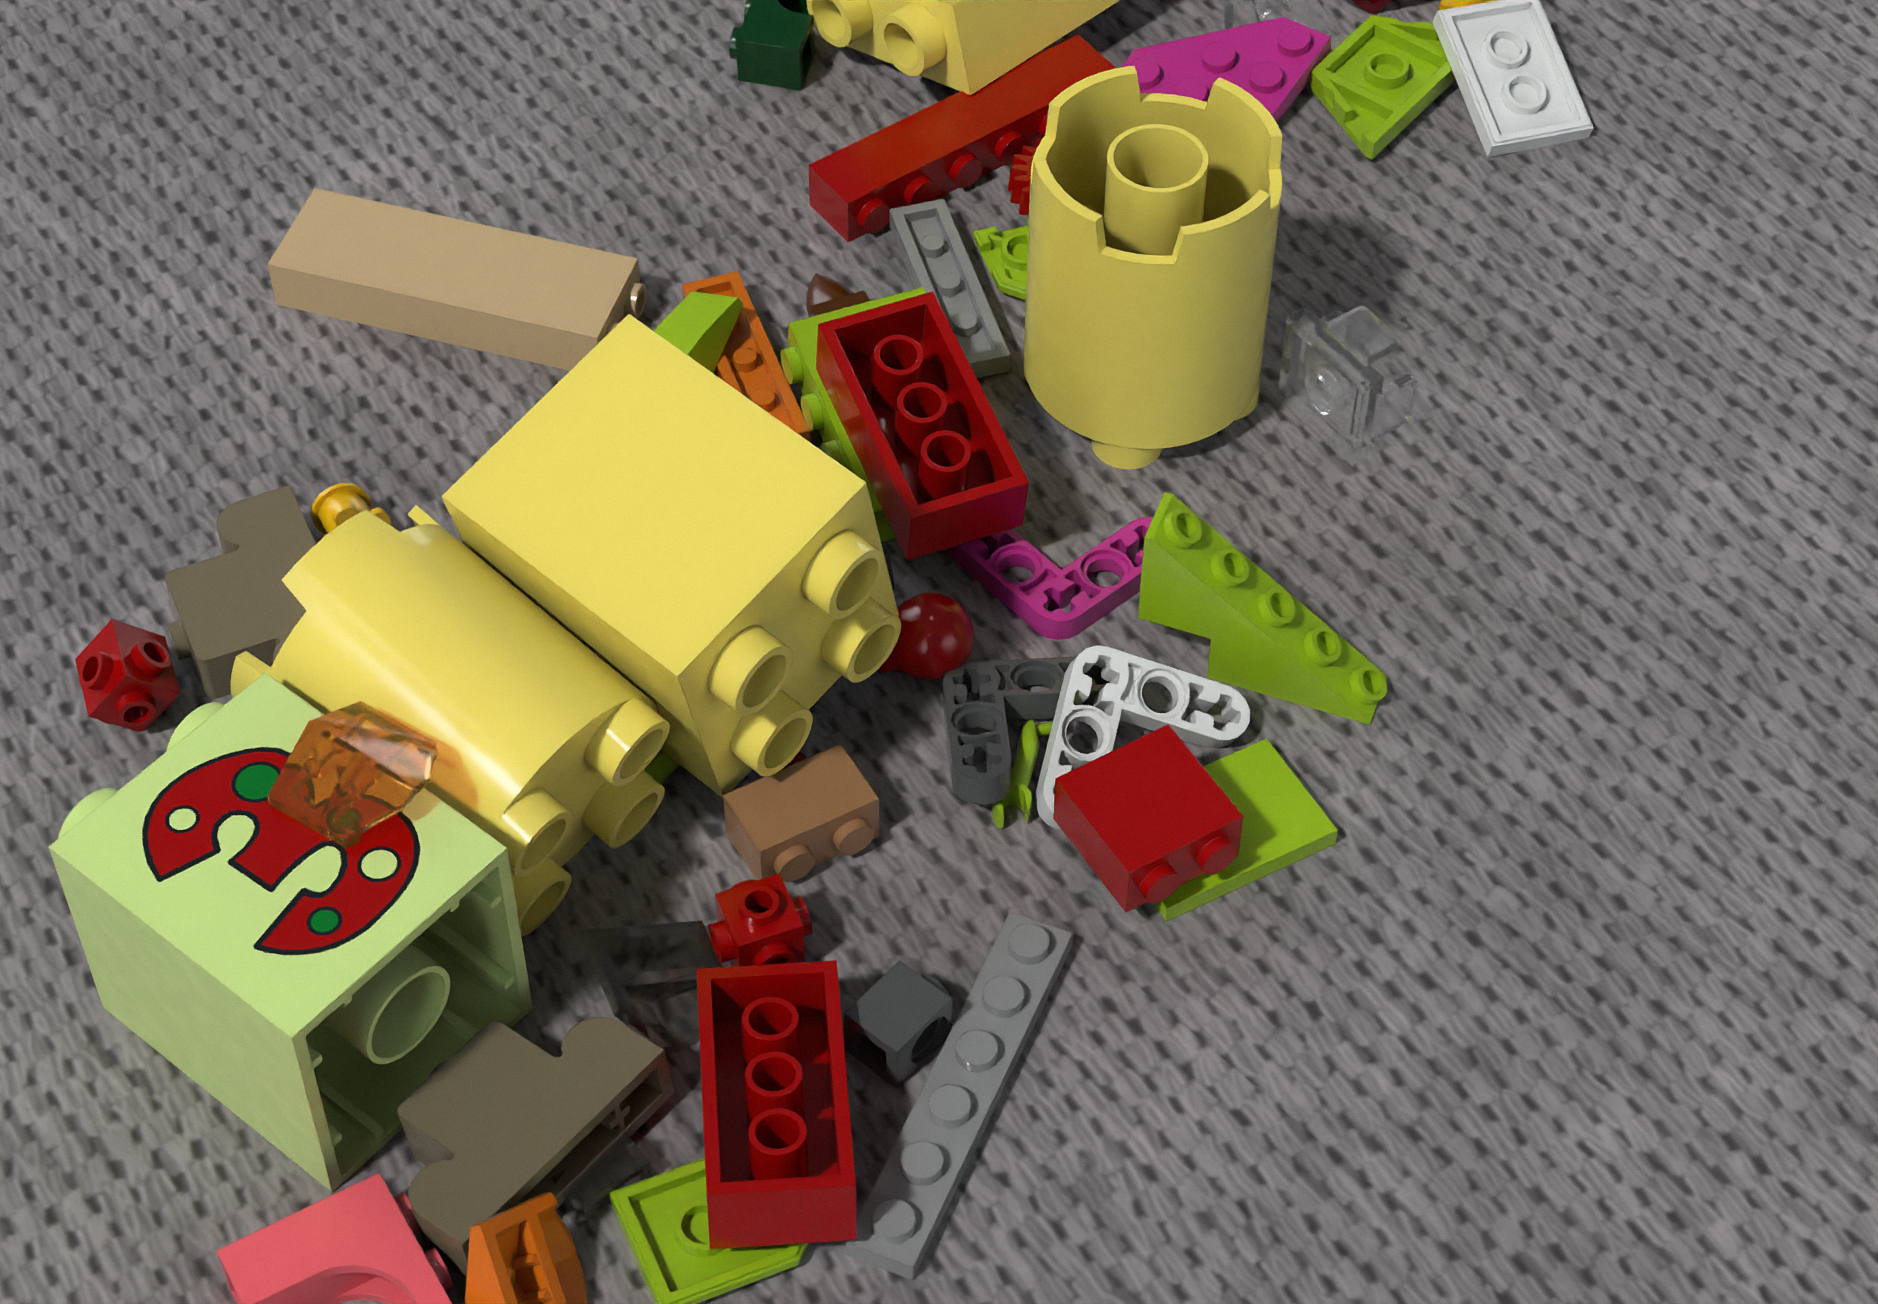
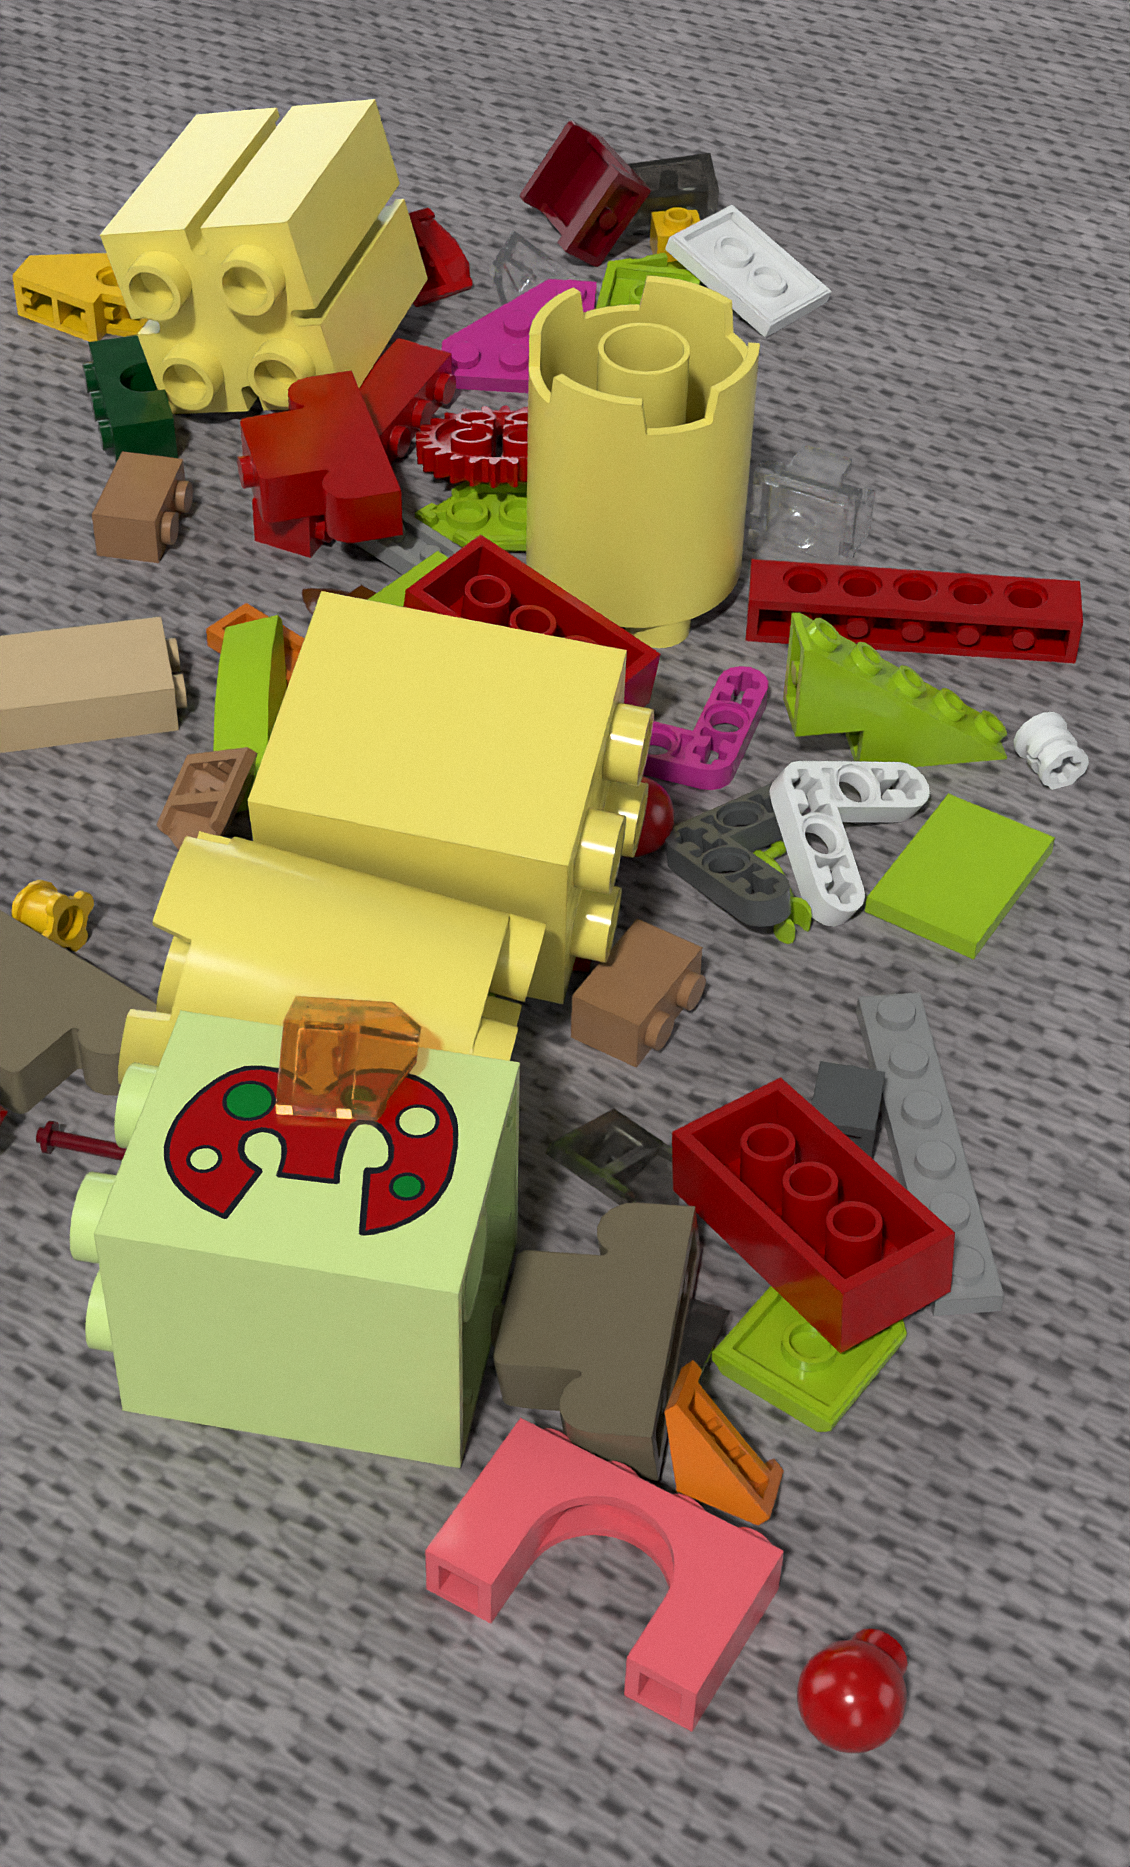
camera: 30 degrees left, 5 degrees down
(715, 133) = (141, 507): none -> medium nougat brick
(759, 924) = (676, 1086): red brick -> none
(889, 147) = (322, 462): none -> red brick
(1148, 818) = (928, 876): red brick -> none
(1386, 527) = (920, 609): none -> red brick
(1408, 735) = (1051, 750): none -> white bush

